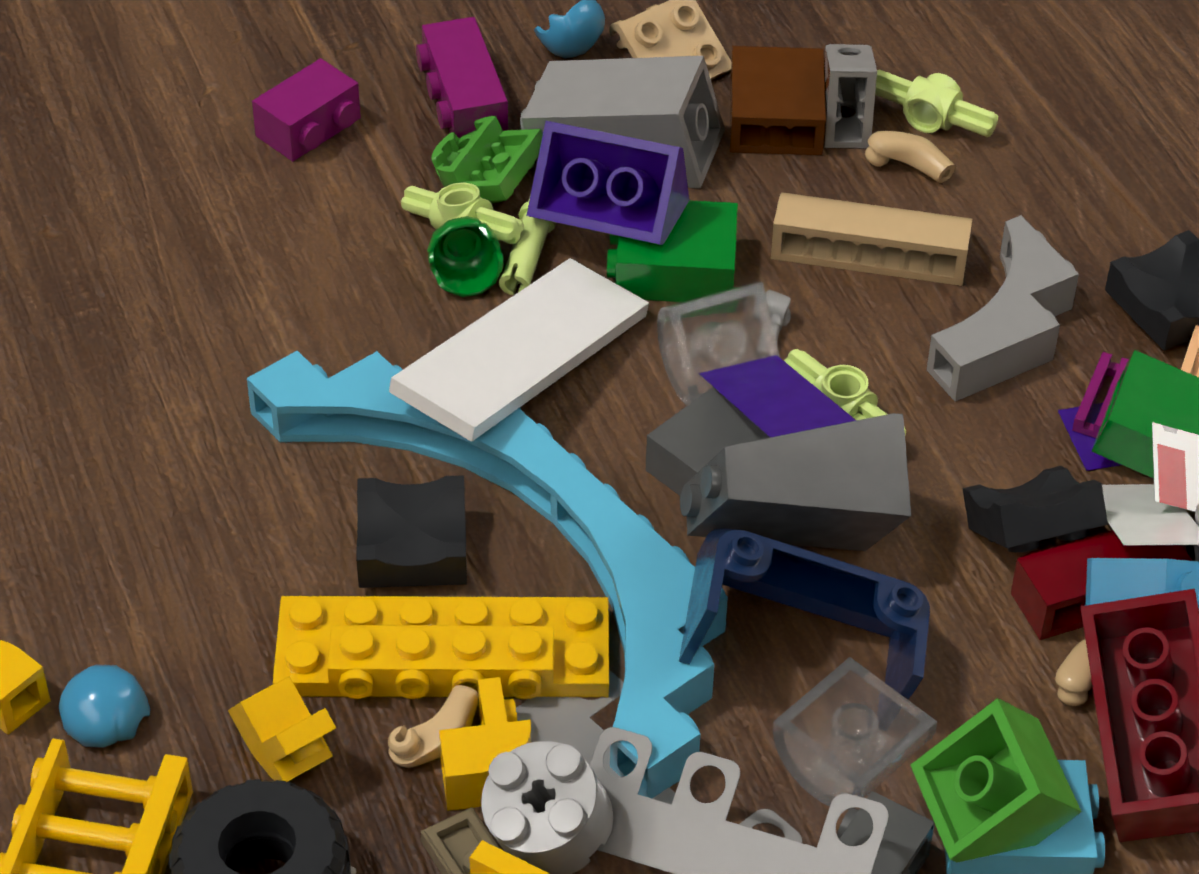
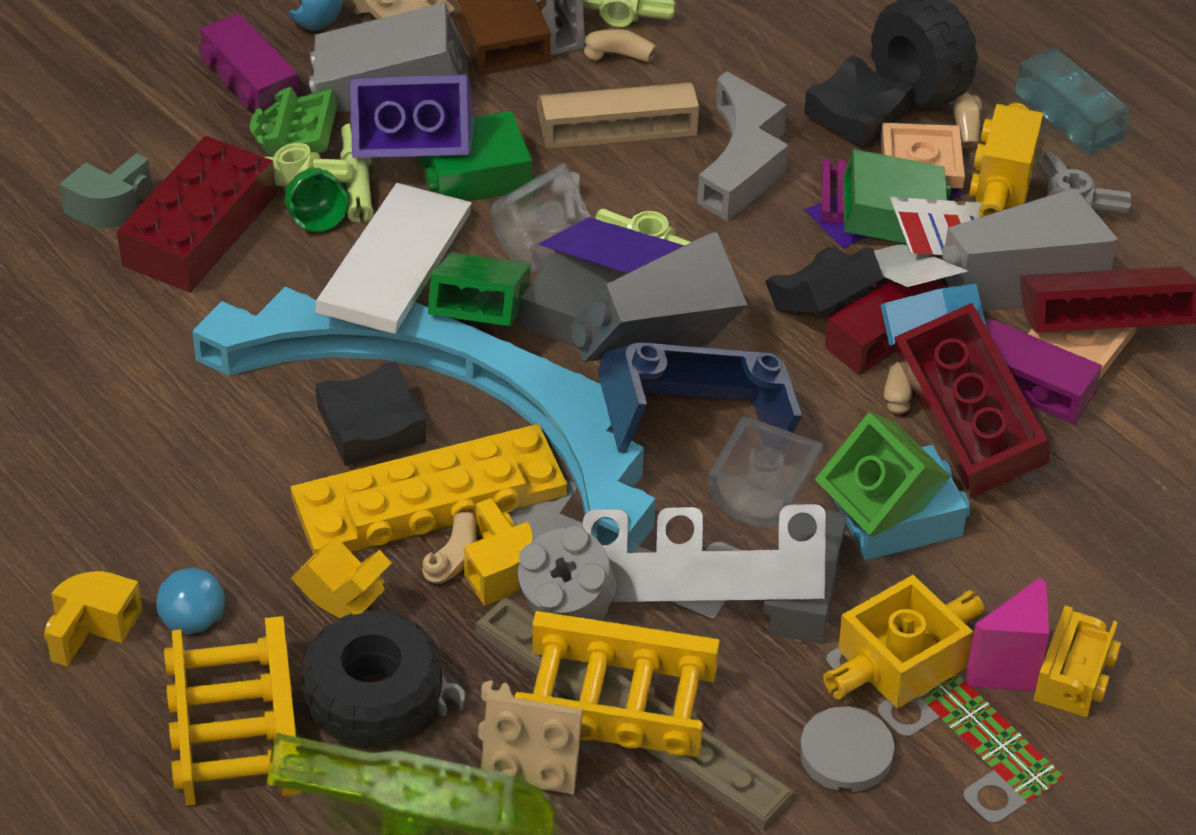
camera: 20 degrees left, 0 degrees up
(237, 198) = (106, 198): none -> sand green brick
(306, 109) = (132, 116): magenta brick -> none
(324, 239) = (196, 213): none -> dark red brick
(599, 410) = (478, 288): none -> green brick

